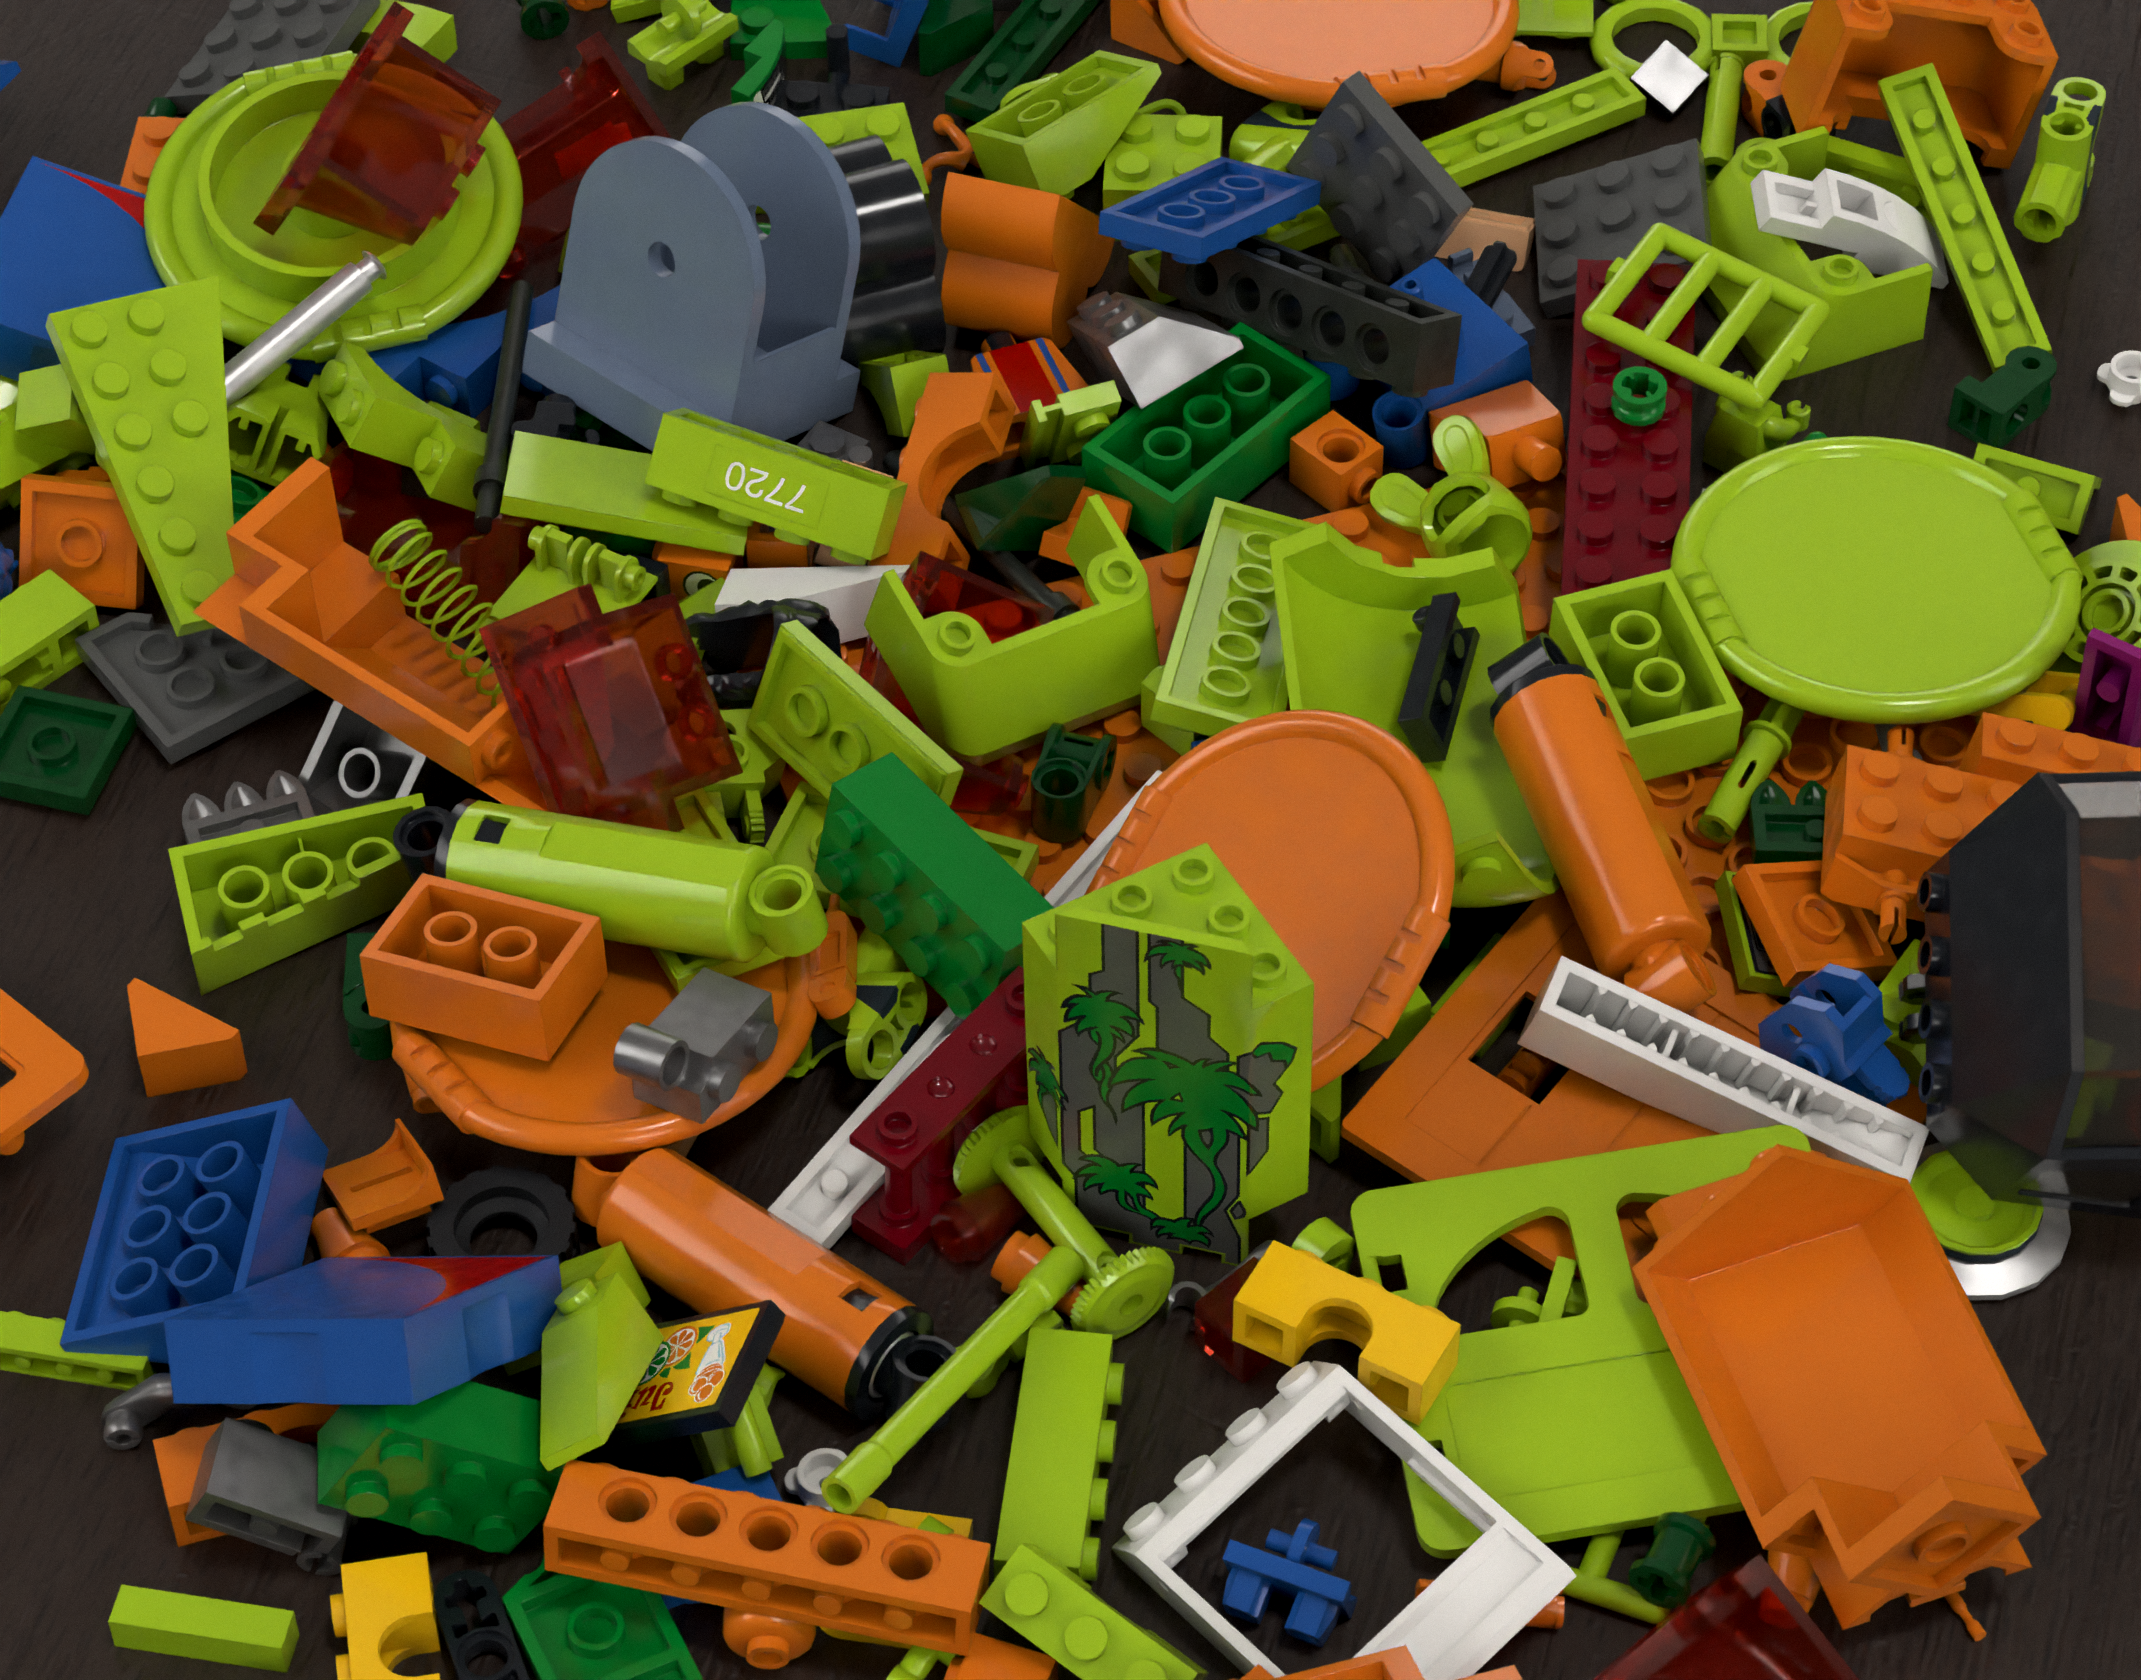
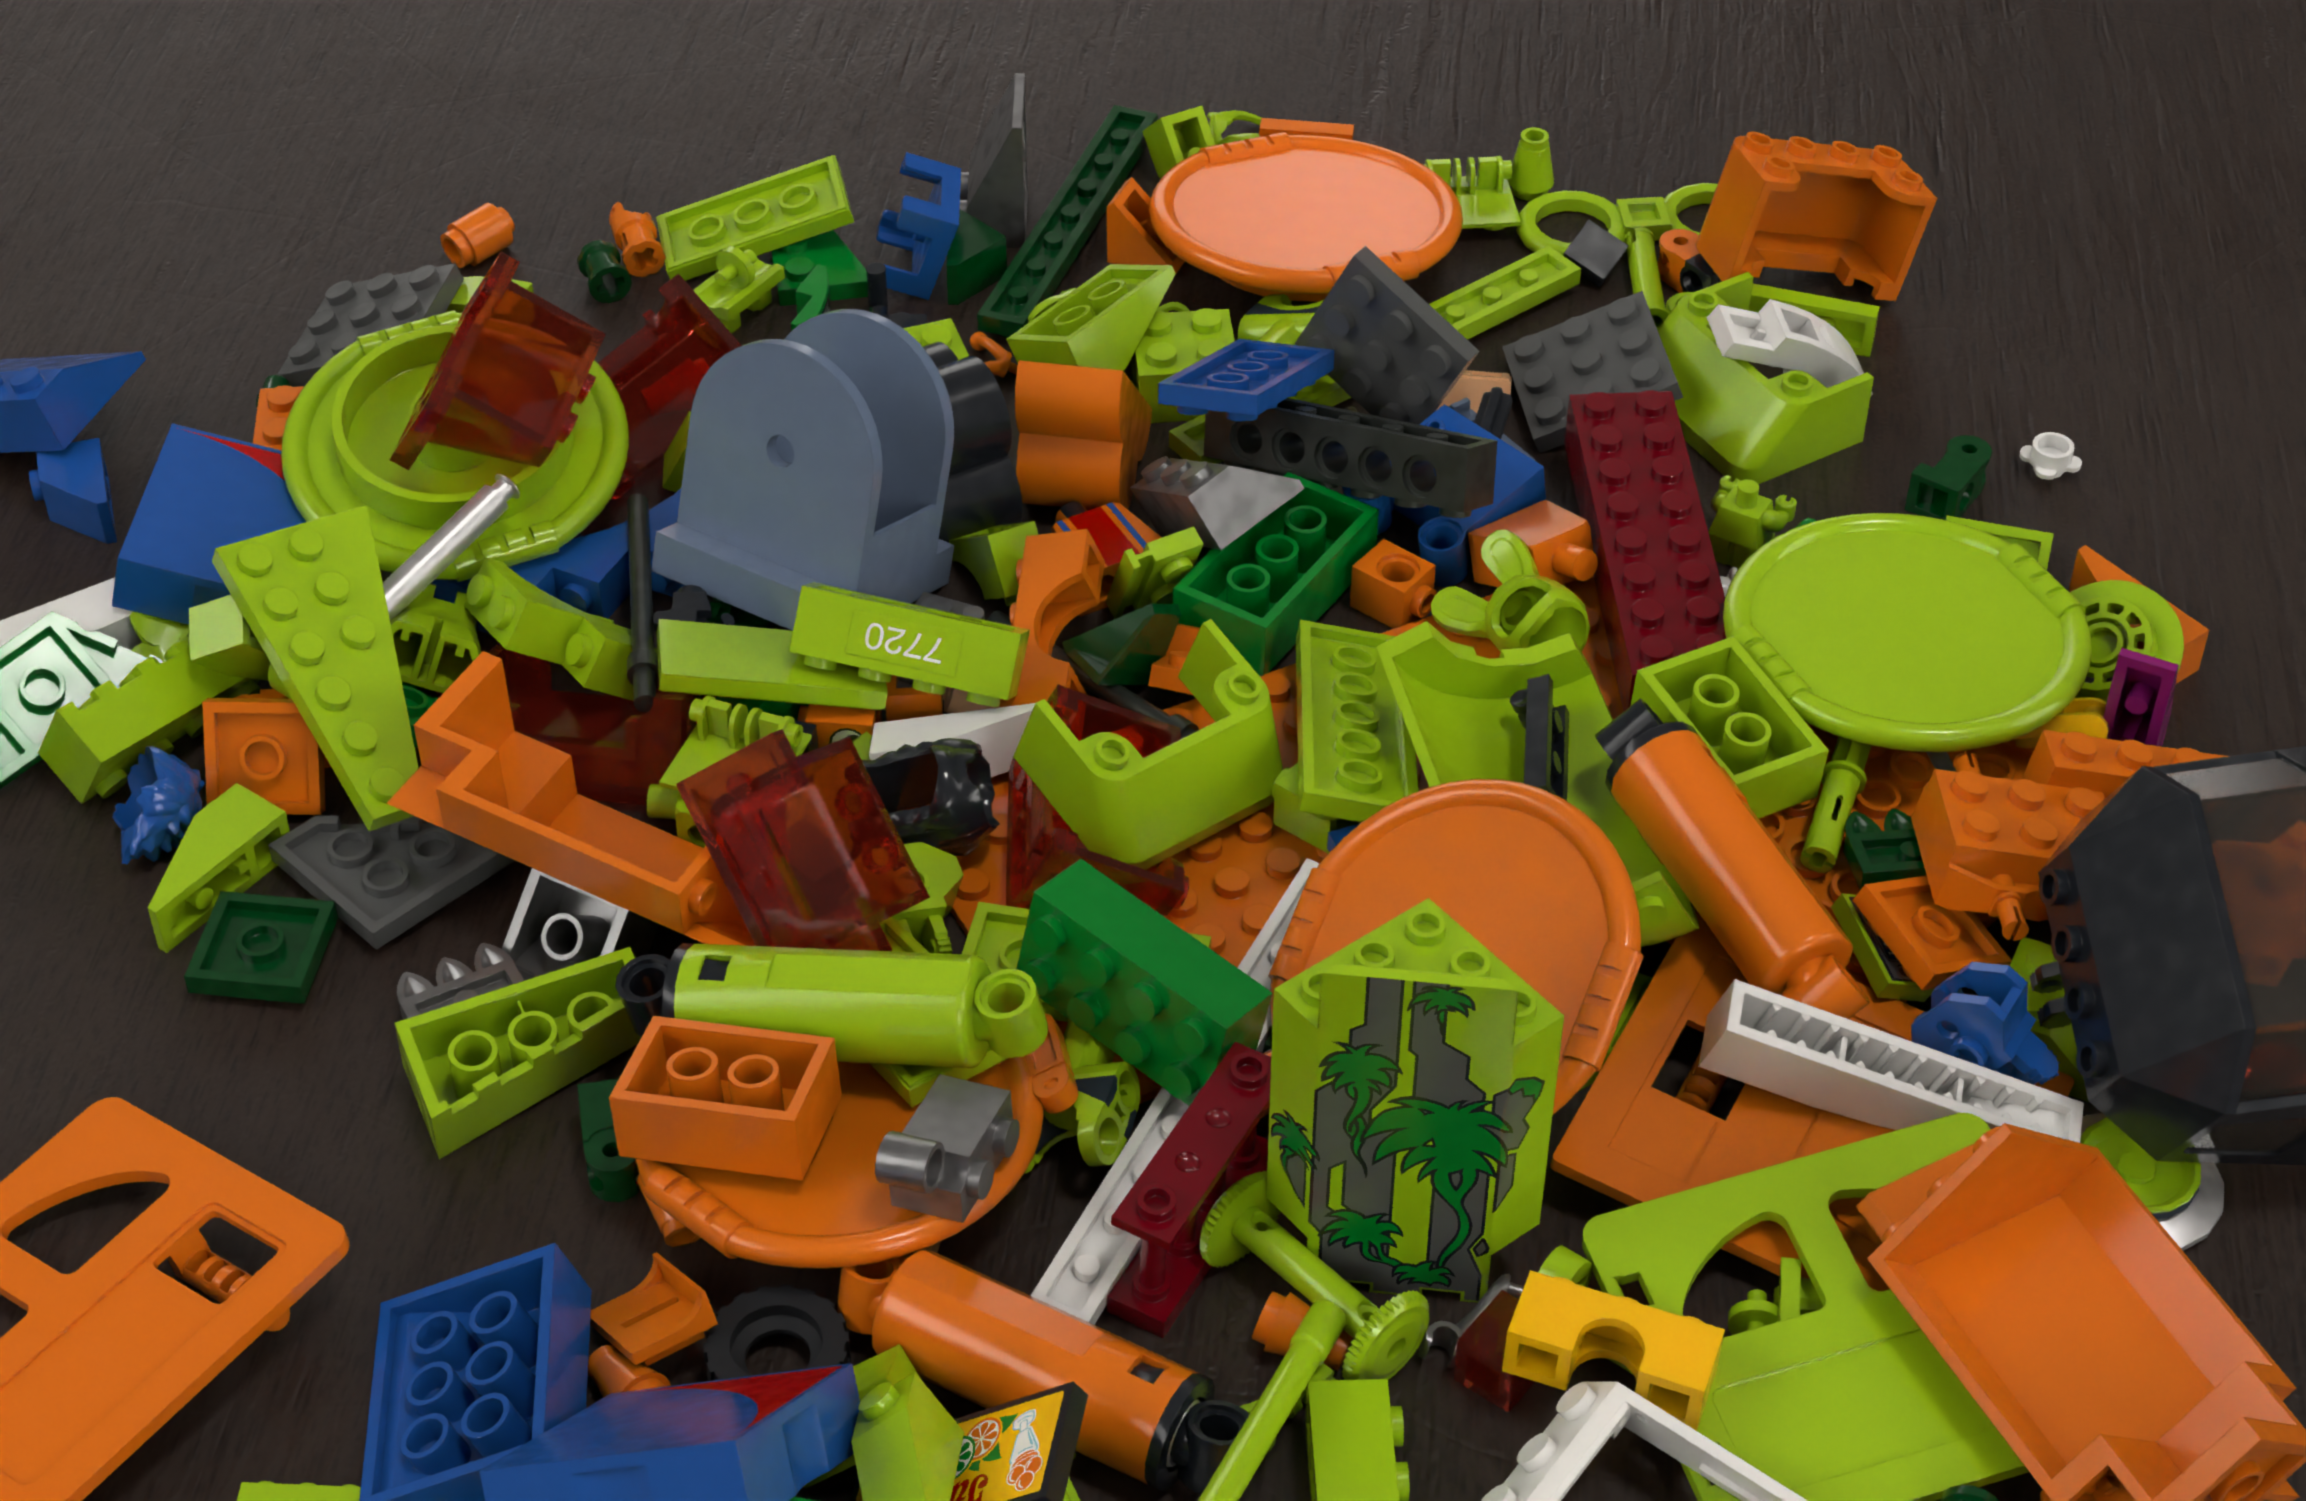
camera: 10 degrees left, 5 degrees down
(180, 1044) = (431, 1205): orange slope -> none
(408, 553) = (580, 734): lime piece -> none
(835, 722) = (1010, 841): lime tile -> none
(975, 1222) = (1226, 1288): clear red cone -> none
(1069, 782) = (1224, 880): dark green piece -> none
(1521, 69) = (1467, 254): orange piece -> none
(1639, 381) = (1658, 498): green bush -> none
(1704, 368) = (1707, 469): lime bar -> none
(1961, 213) = (1879, 335): lime plate -> none
(2062, 160) = (1948, 284): lime connector -> none

